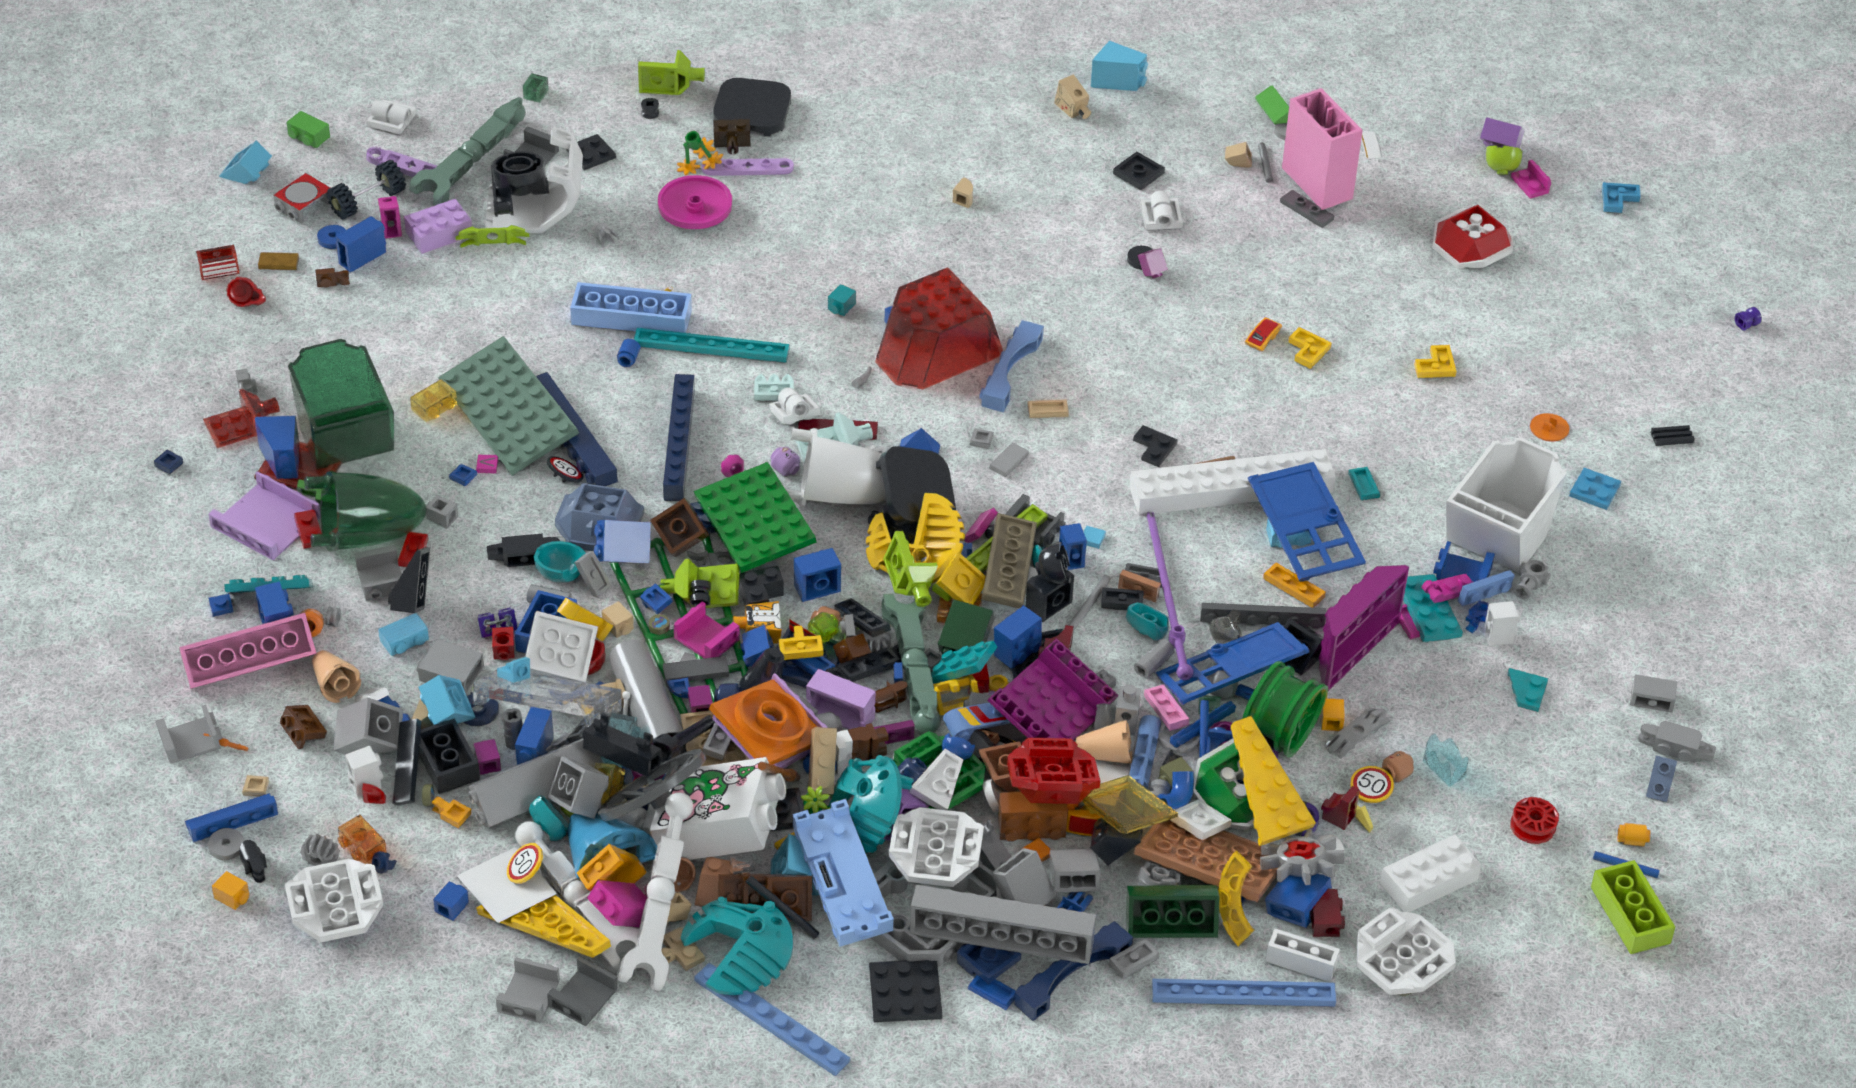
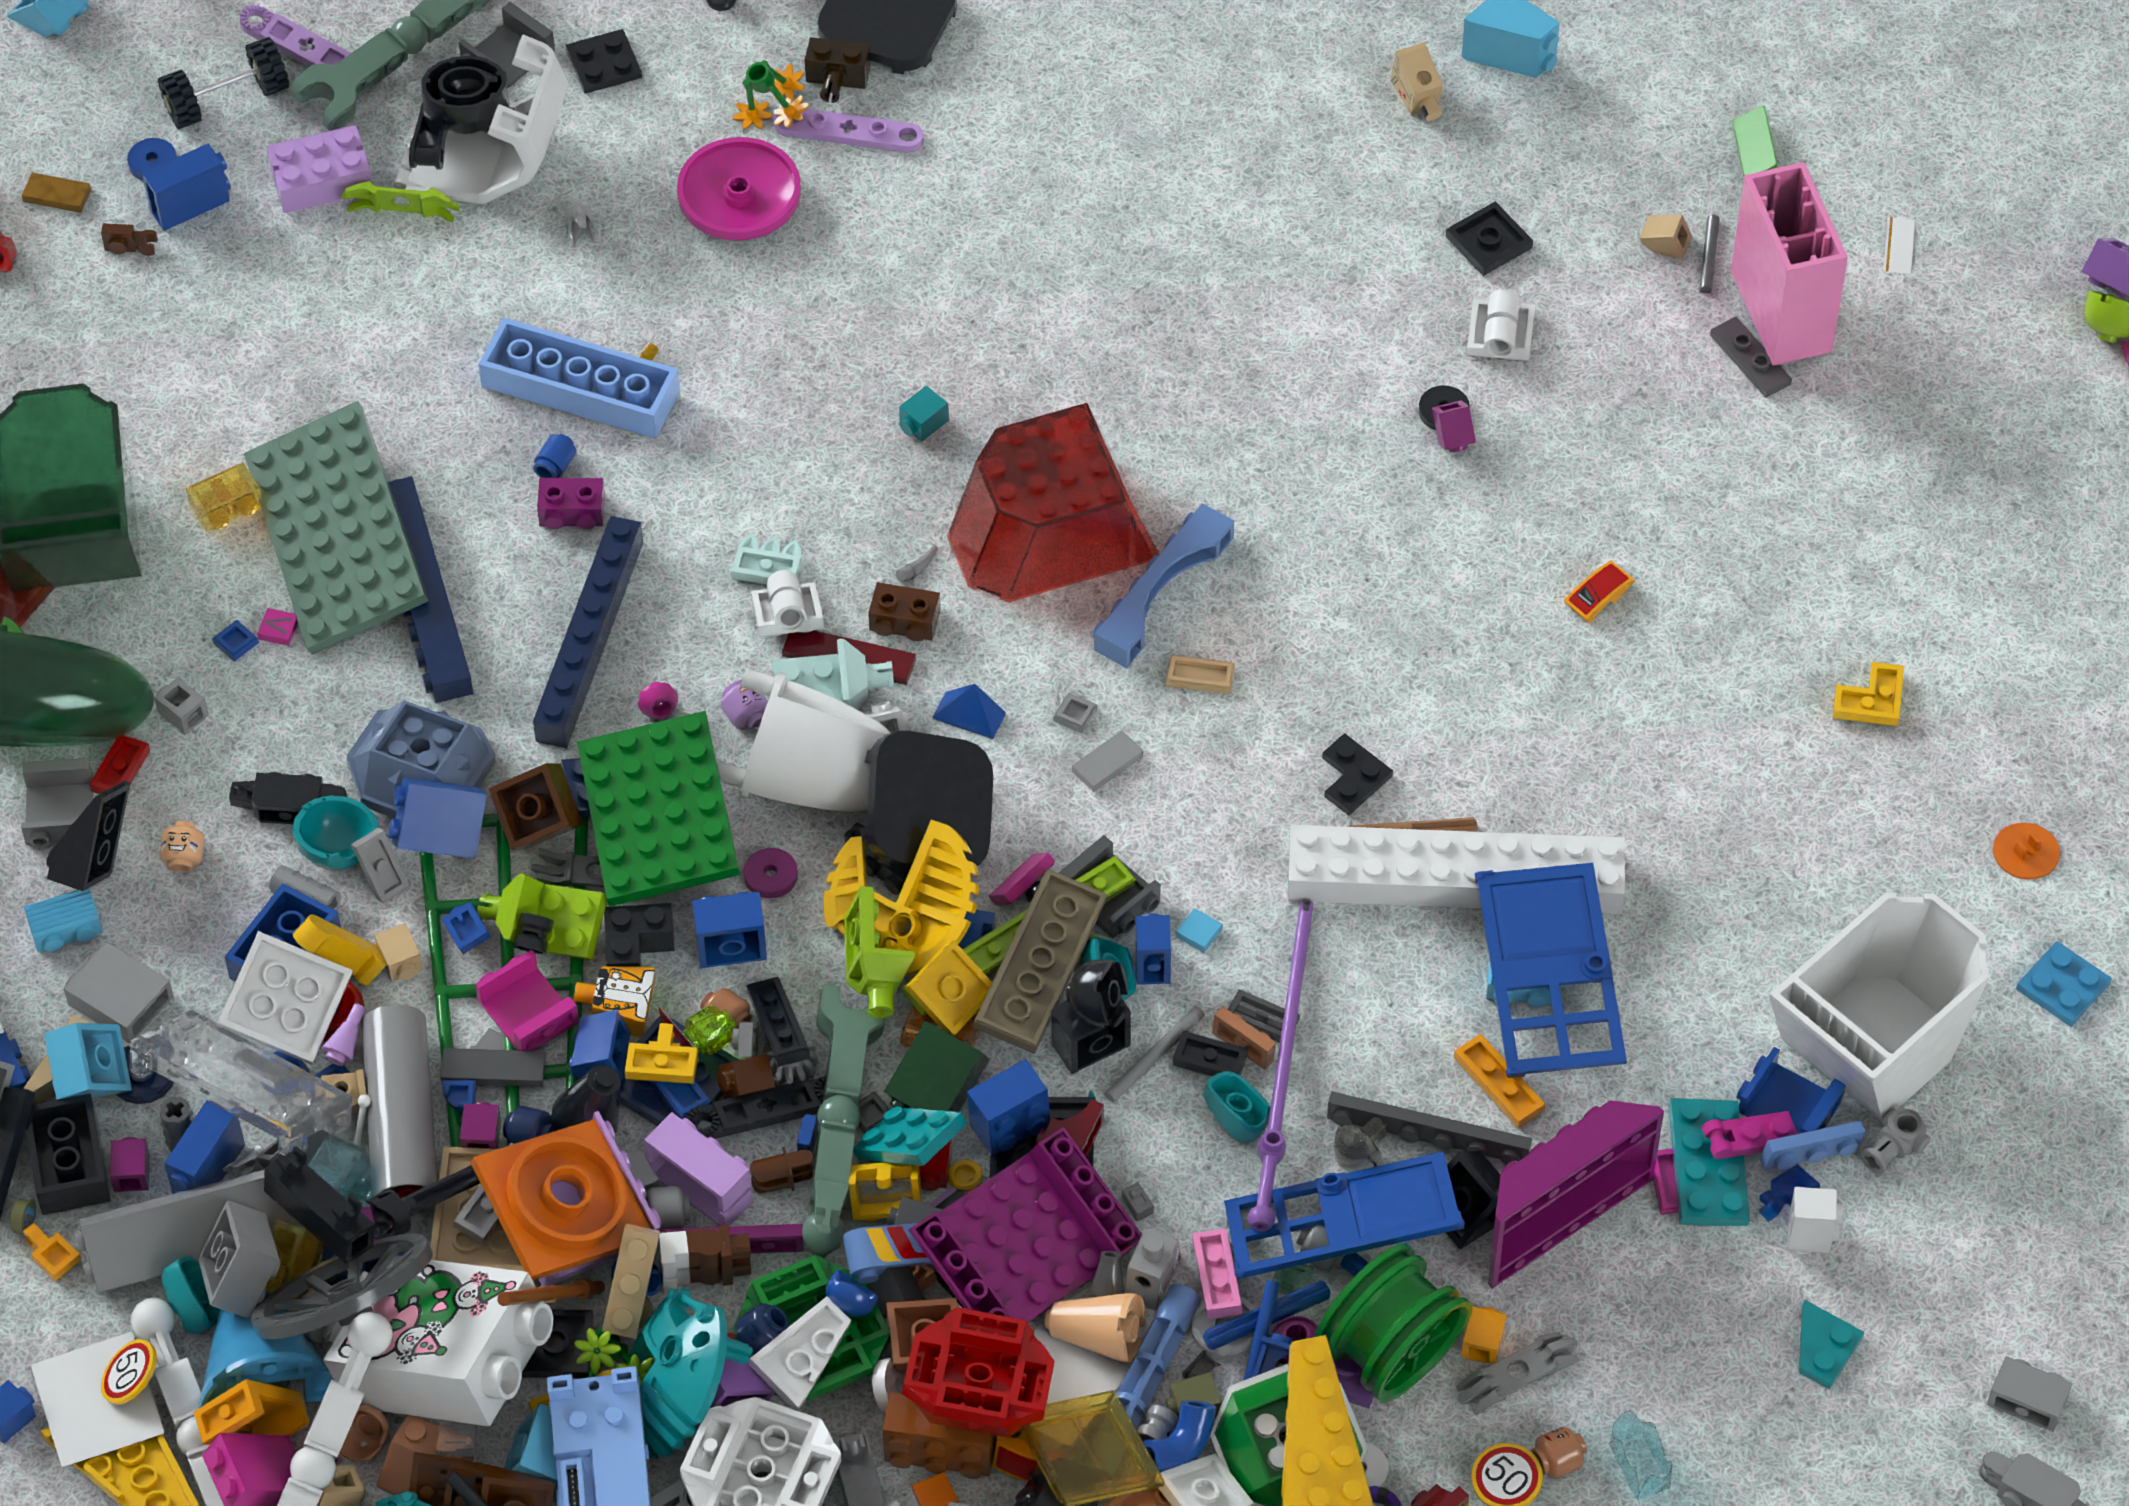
camera: 15 degrees right, 10 degrees up
(300, 196) = (118, 78): light grey panel -> none
(390, 212) = (245, 126): dark pink torso -> none
(465, 584) = (182, 847): none -> light nougat head
(487, 619) = (195, 919): dark purple piece -> none
(503, 643) = (209, 953): red brick -> none
(515, 670) = (202, 1029): medium azure bracket -> none
(564, 469) = (392, 661): piece -> none
(601, 670) = (342, 1043): none -> lavender cone
(646, 373) = (571, 502): none -> magenta brick
(659, 624) = (459, 973): olive tile -> none
(712, 345) = (692, 464): teal plate -> none
(829, 539) = (768, 860): none -> magenta piece
(864, 400) = (904, 612): none -> reddish brown brick
(963, 193) = (1183, 238): tan brick -> none
(1154, 658) = (1227, 1178): light grey axle -> none
(1311, 347) = (1673, 631): yellow plate -> none
(1364, 483) = (1677, 906): teal tile -> none
(1471, 238) = (2010, 463): red piece -> none

